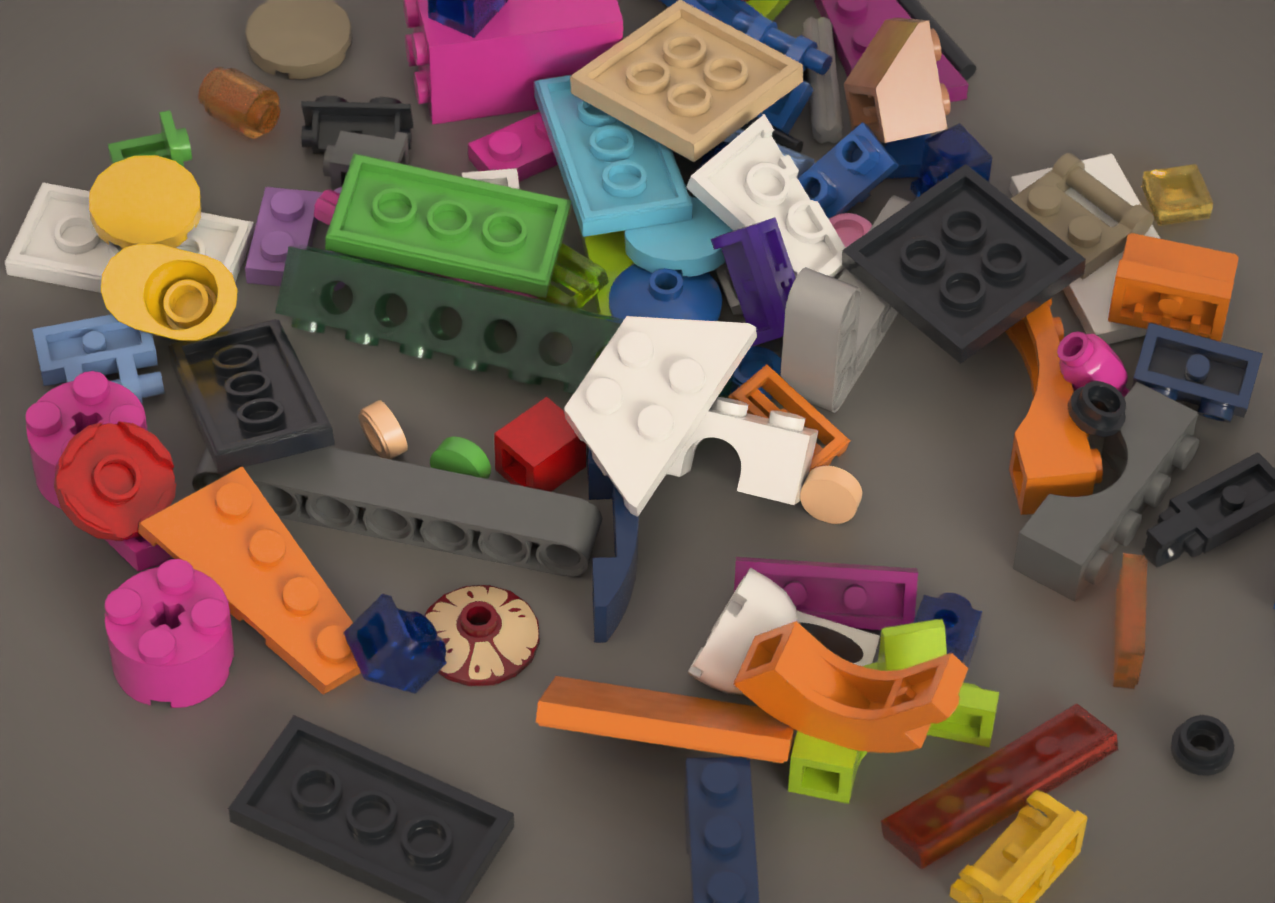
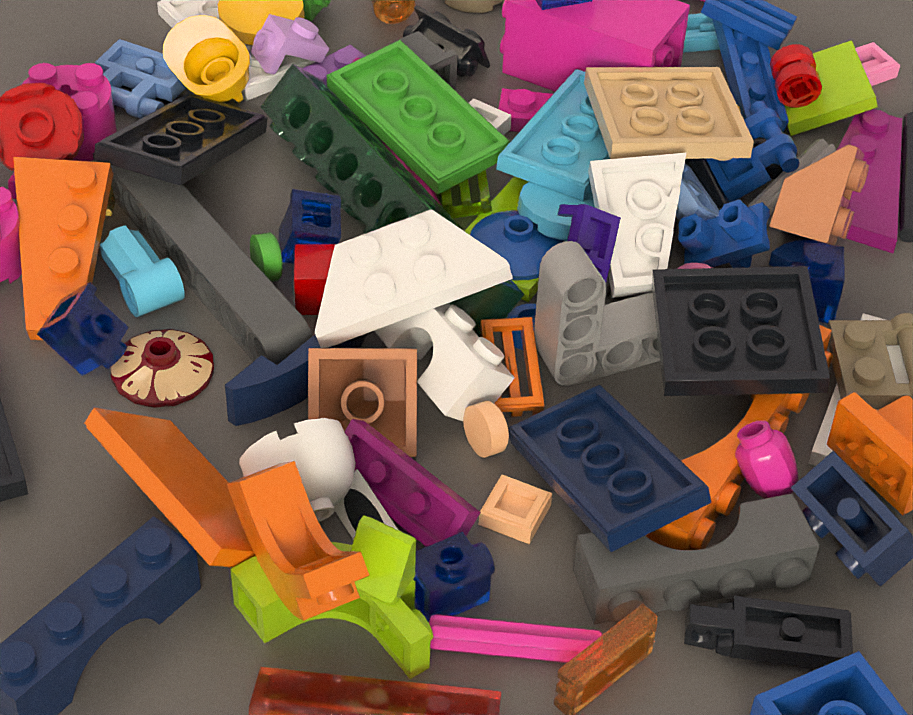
camera: 40 degrees right, 5 degrees down
(218, 222) = (289, 37): none -> lavender bracket
(373, 561) = (142, 276): none -> medium azure piece
(382, 430) = (244, 209): light nougat tile -> none
(483, 404) = (309, 220): none -> clear blue brick
(704, 525) = (367, 386): none -> nougat slope
(921, 545) = (515, 509): none -> light nougat tile
(975, 457) = (608, 467): none -> dark blue tile
(1047, 651) = (509, 638): none -> dark pink axle
(1098, 409) = (740, 481): black plate -> none

